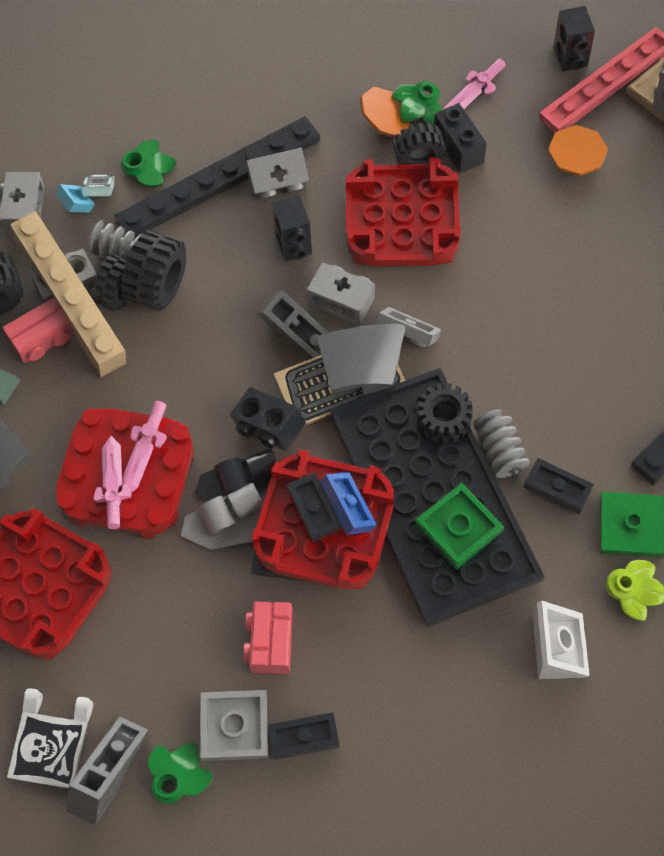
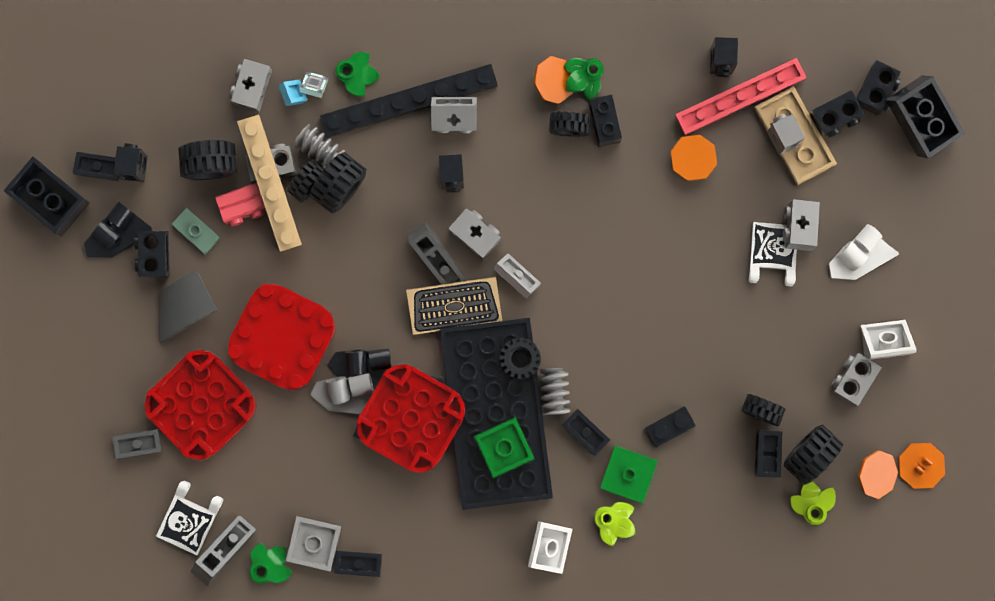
camera: 15 degrees right, 20 degrees up
(112, 481) = (269, 347): bright pink sword -> none
(144, 447) = (297, 328): bright pink sword -> none
(267, 419) = (394, 324): black brick -> none
(270, 638) = (353, 489): coral brick -> none
(314, 507) = (405, 411): black plate -> none
(347, 503) = (429, 415): blue plate -> none
(362, 357) = (472, 299): dark grey slope -> none
(402, 214) = (541, 176): red plate -> none
(473, 89) = (631, 74): bright pink sword -> none

